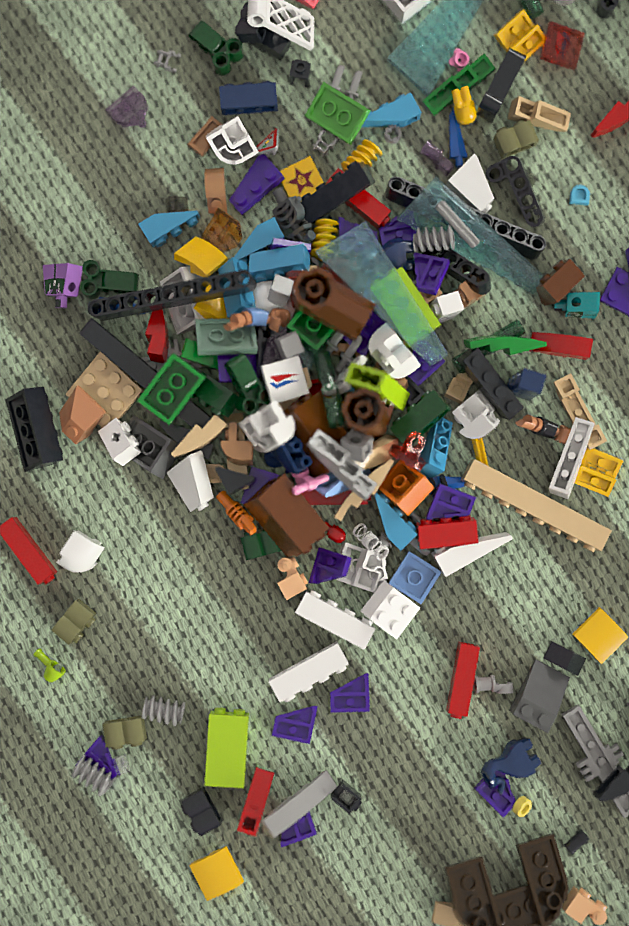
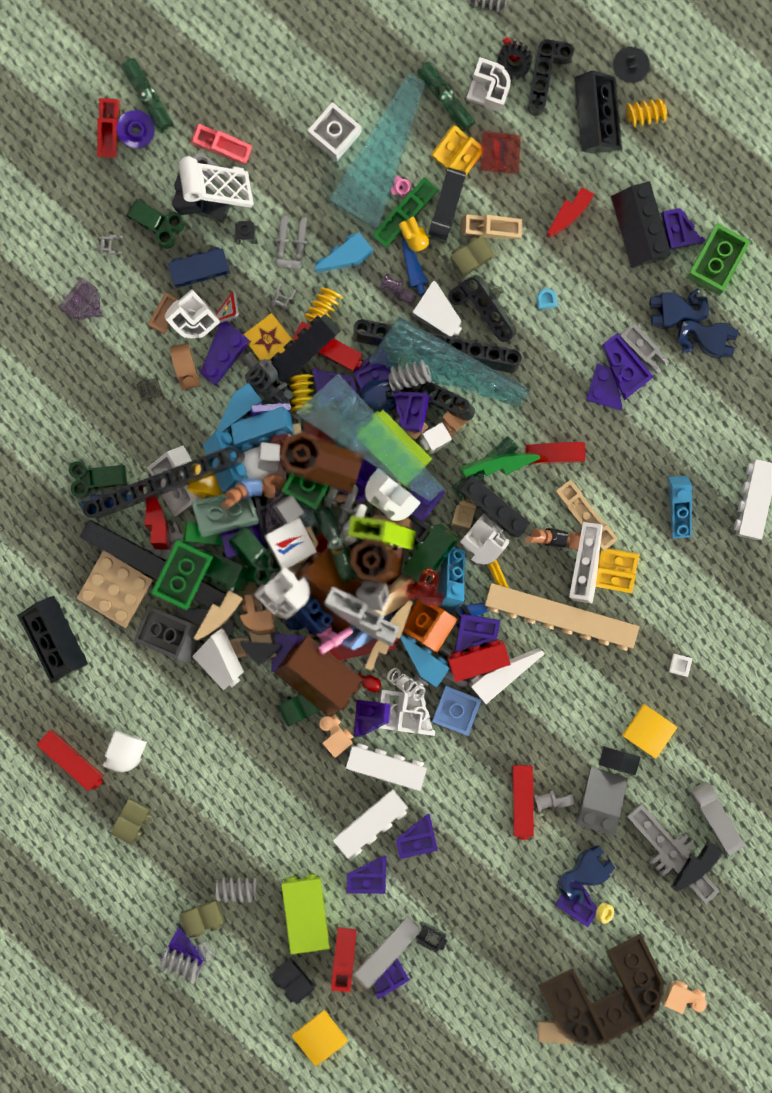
camera: 10 degrees left, 0 degrees up
(50, 673) = (118, 876): lime bar -> none
(62, 282) = (51, 489): medium lavender torso -> none
(80, 415) = (95, 617): nougat slope -> none
(119, 441) = (140, 635): white brick -> none
(160, 224) = (136, 413): dark azure slope -> none
(201, 257) = (183, 436): yellow slope -> none
(223, 231) = (199, 407): clear orange slope -> none
(237, 513) = (269, 682): orange hinge -> none
(337, 113) = (290, 266): bright green tile -> none
(390, 609) = (438, 746): white brick -> none
(397, 131) = (345, 270): light grey bush -> none
(457, 224) = (429, 357): light grey axle -> none
(526, 384) = (526, 500): dark blue brick -> none
(558, 282) = (540, 393): reddish brown slope -> none
(576, 841) = (665, 936): black pin -> none
(587, 309) = (573, 410): teal torso -> none

